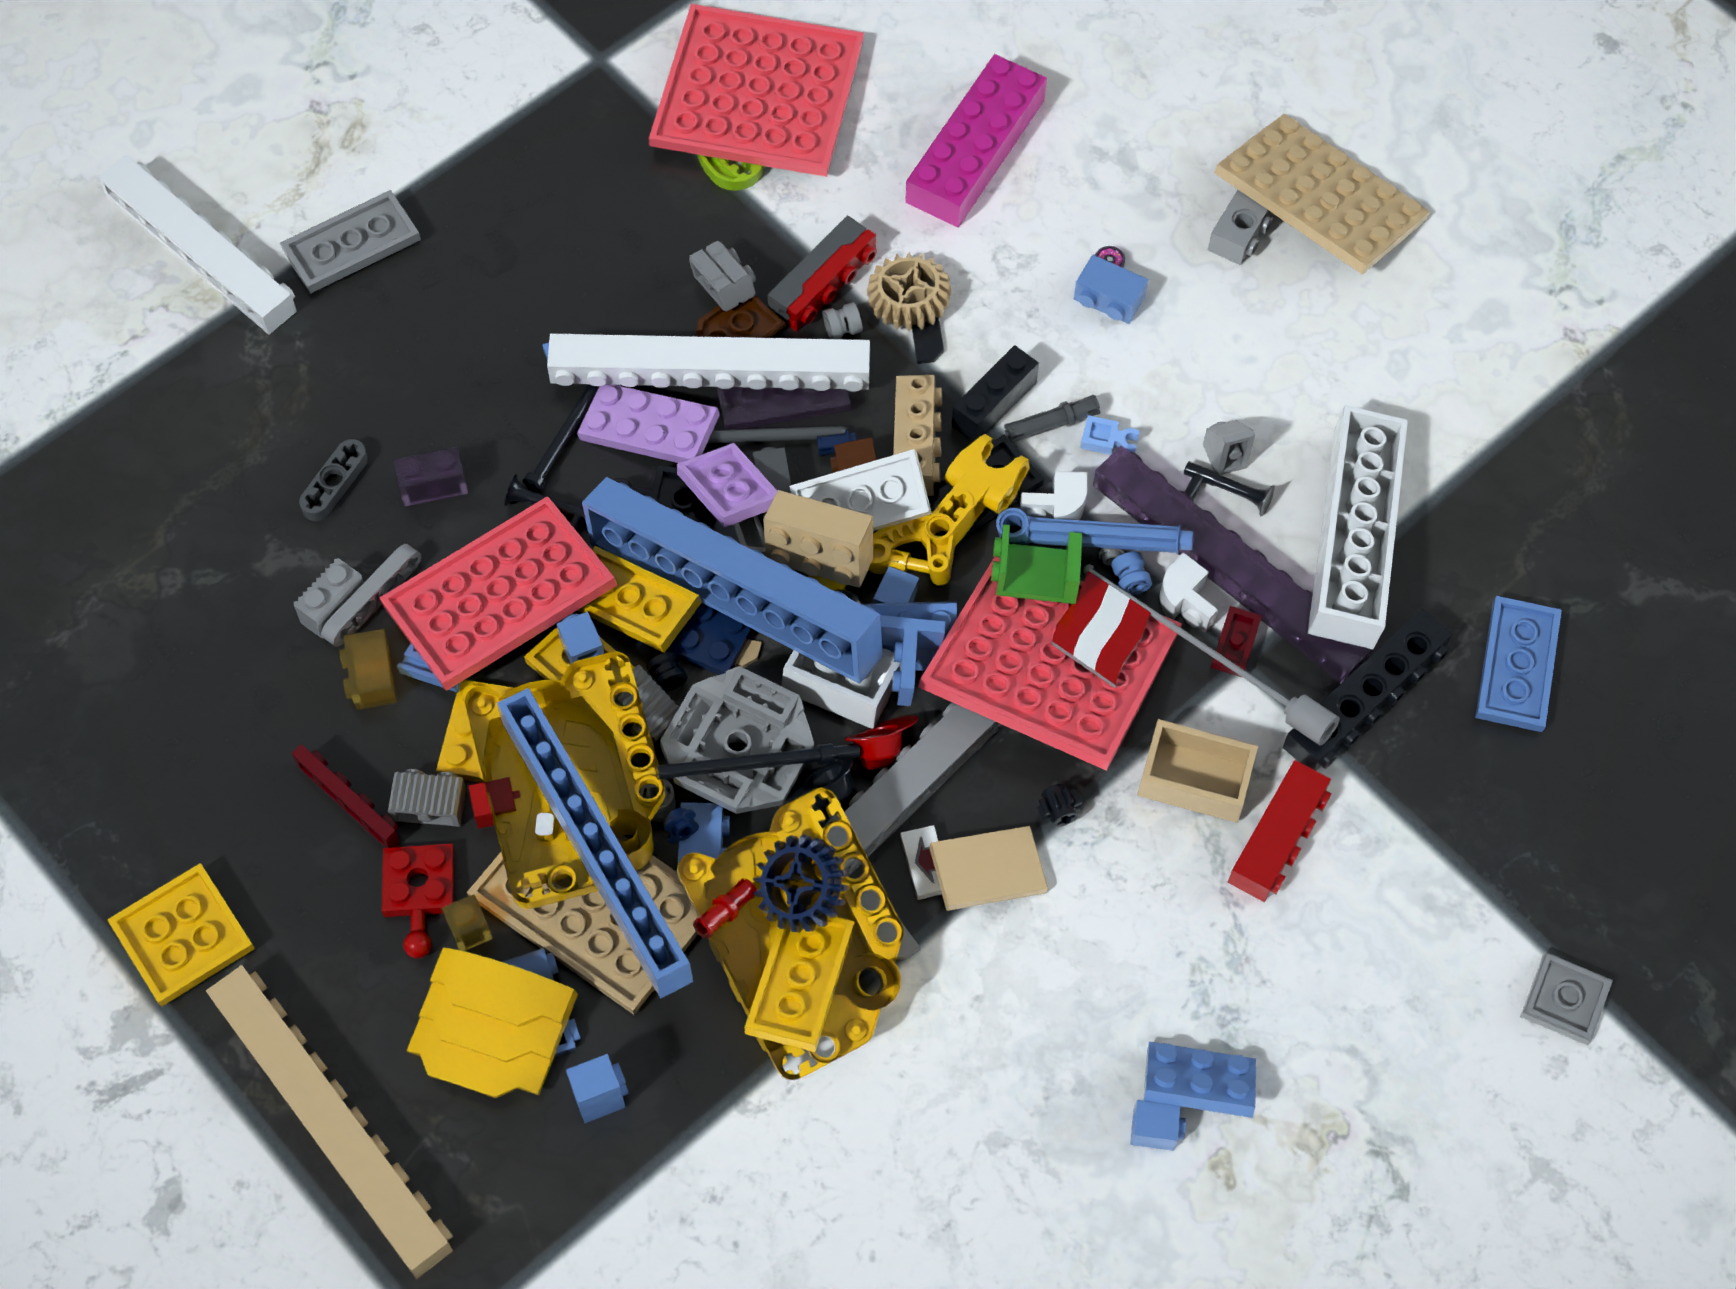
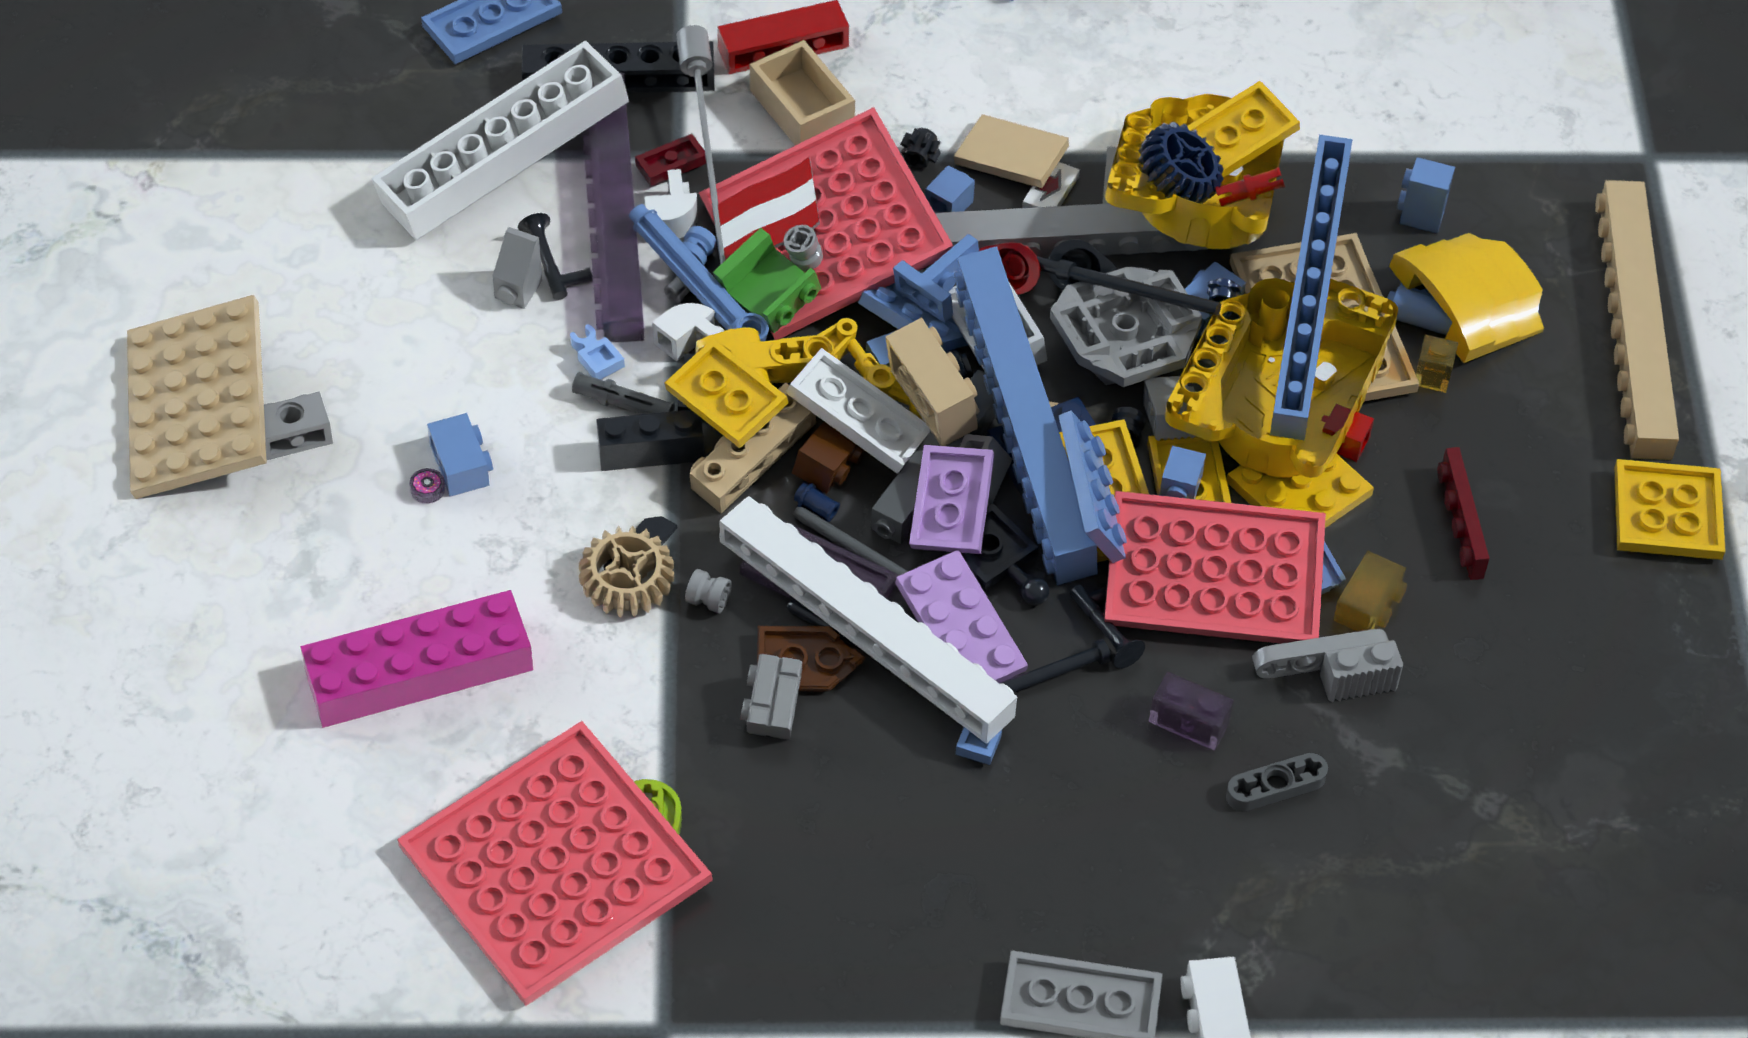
camera: 140 degrees left, 10 degrees down
(406, 900) = (1446, 406): red plate -> none
(427, 798) = (1398, 468): light grey brick -> none
(624, 543) = (1092, 488): none -> medium blue plate
(823, 273) = (681, 643): piece -> none
(958, 423) = (726, 393): none -> yellow plate
(994, 780) = (950, 191): none -> medium blue brick
(1037, 603) = (803, 247): none -> light grey wheel

